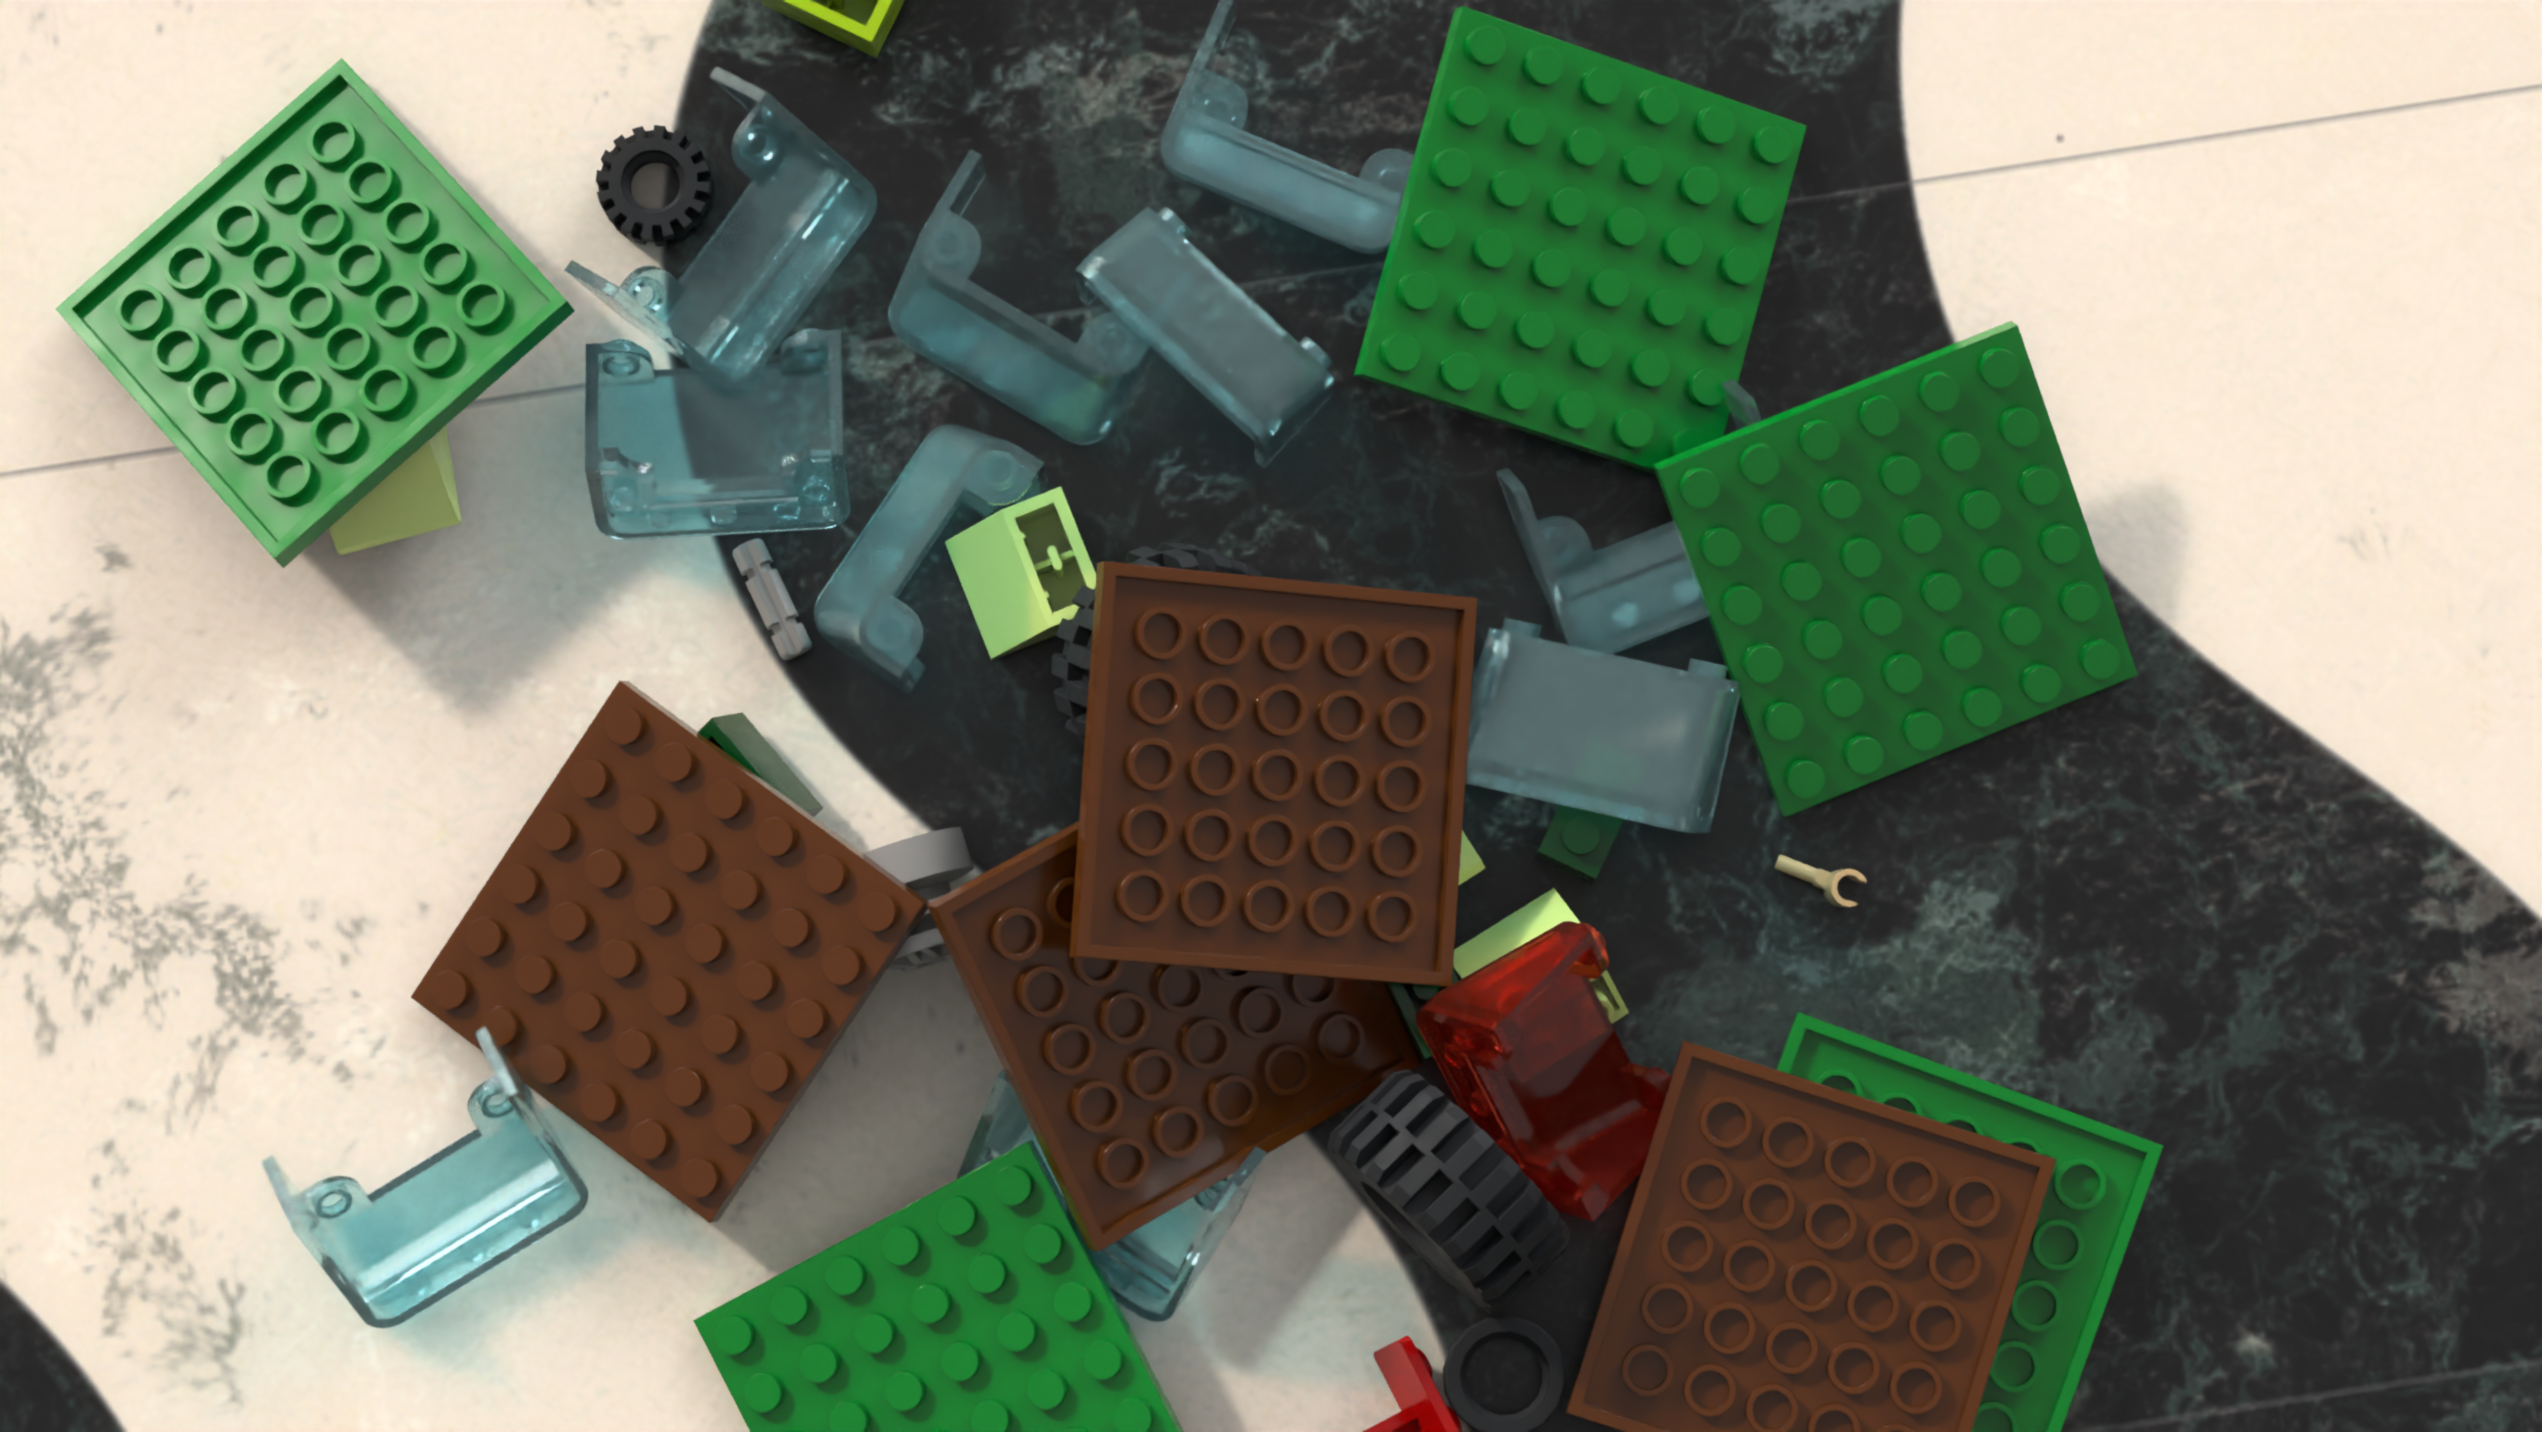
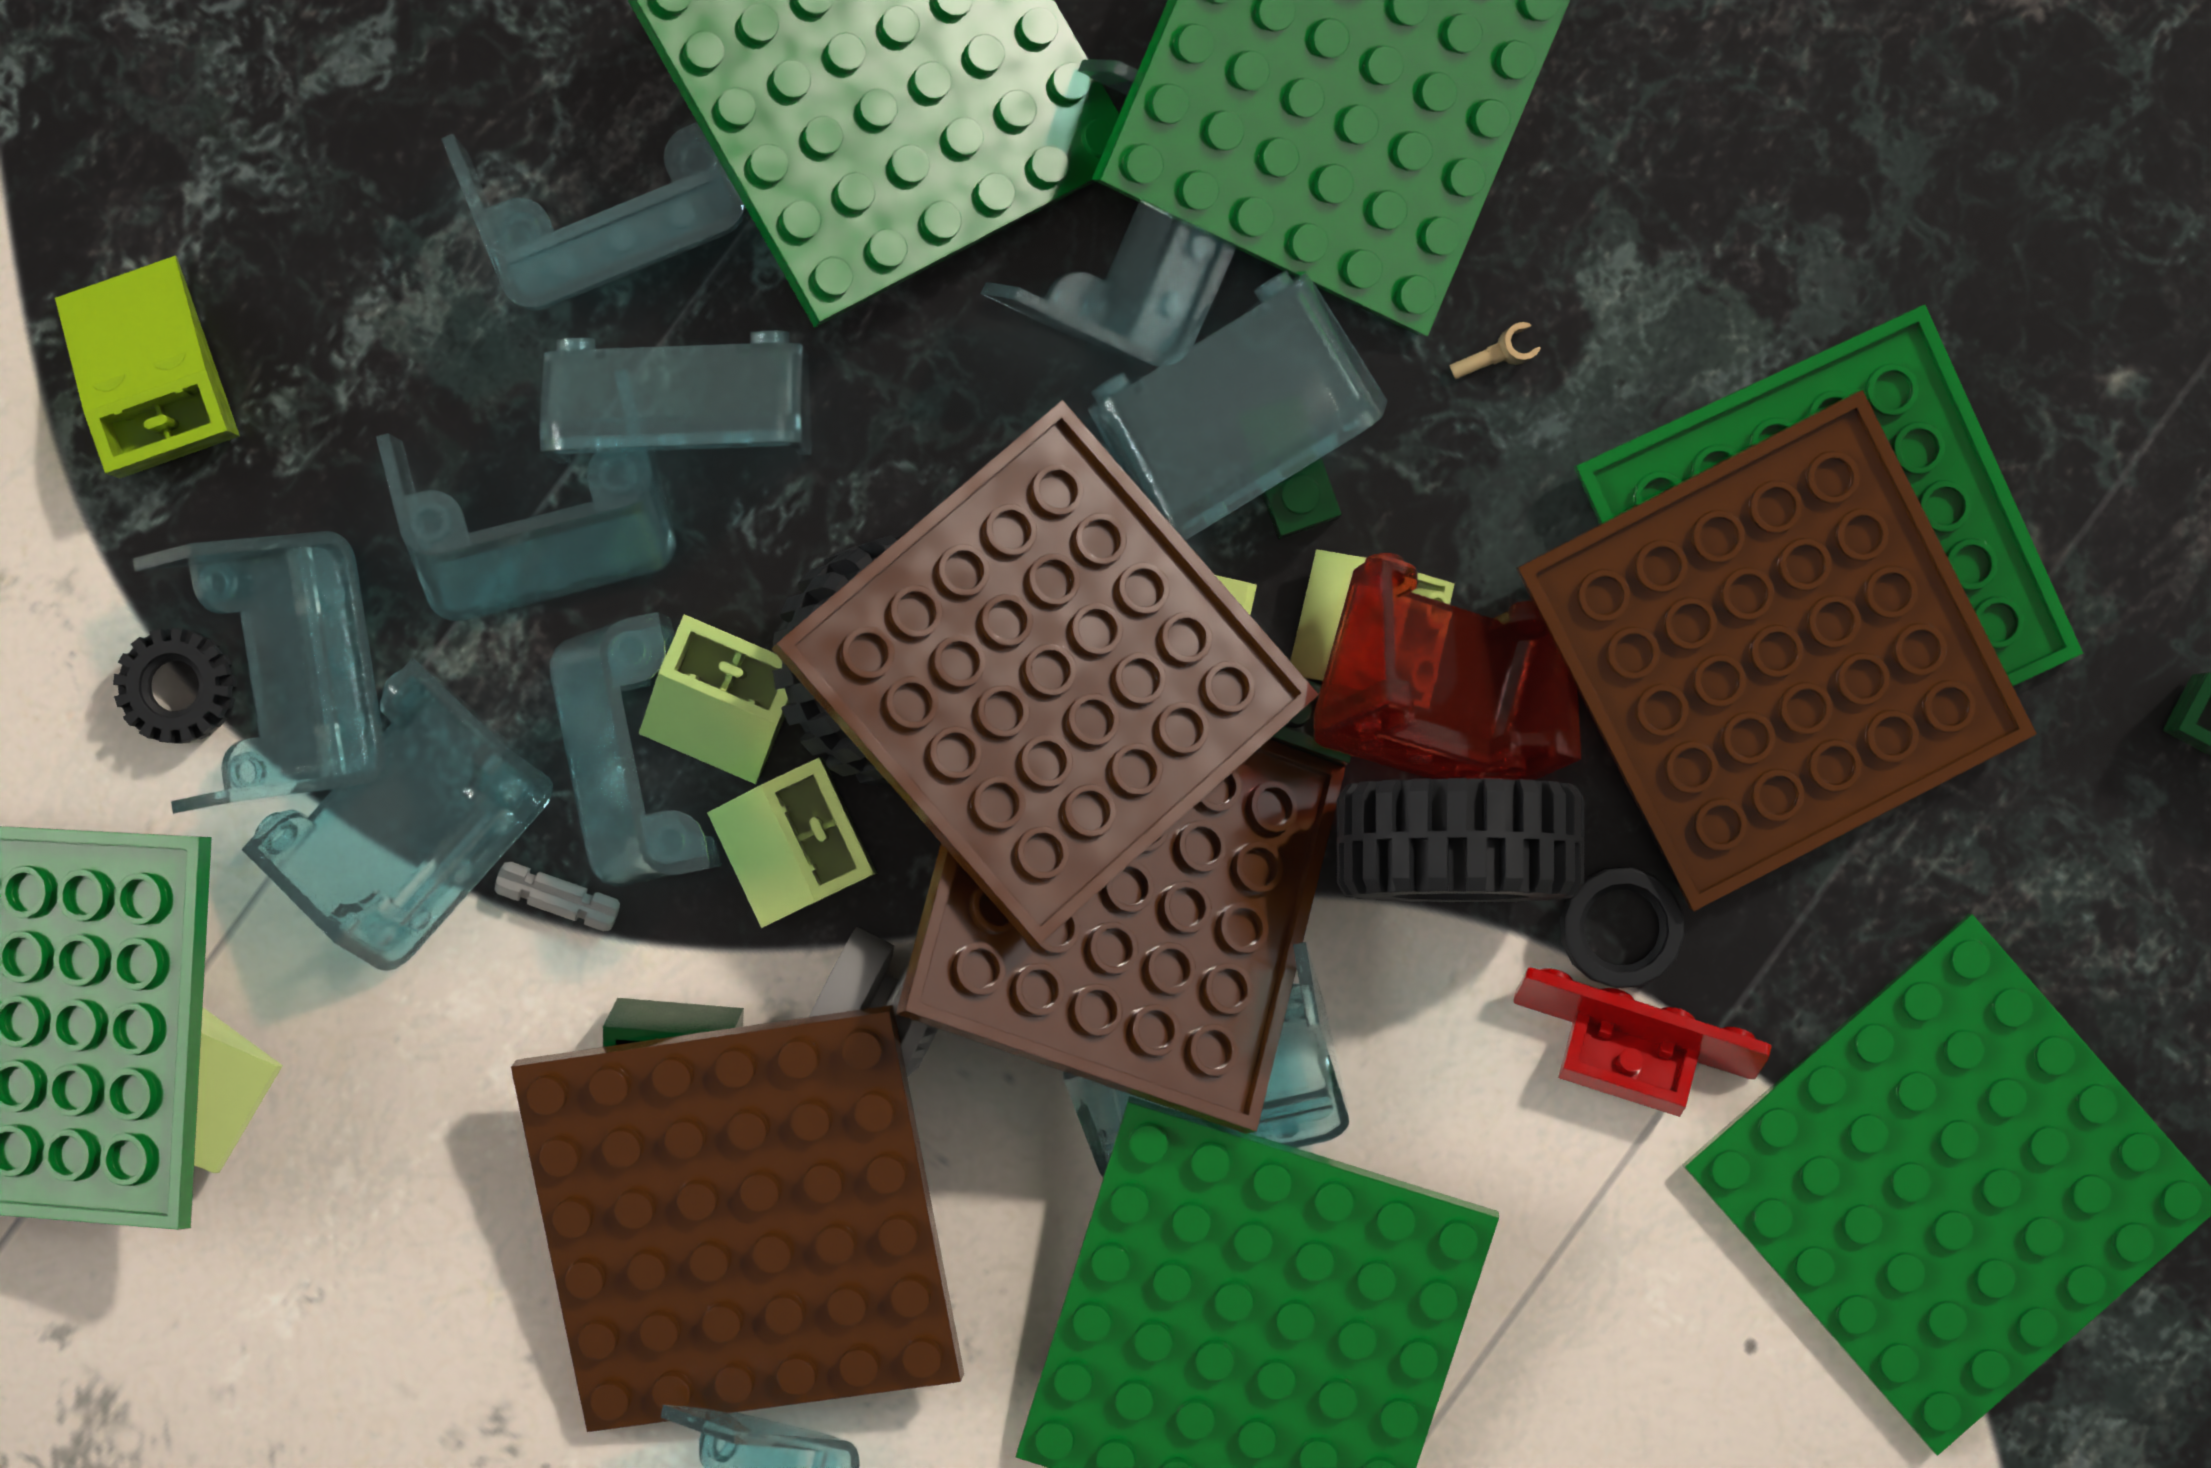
camera: 50 degrees left, 5 degrees up
(976, 724) = (792, 842): none -> yellowish green slope

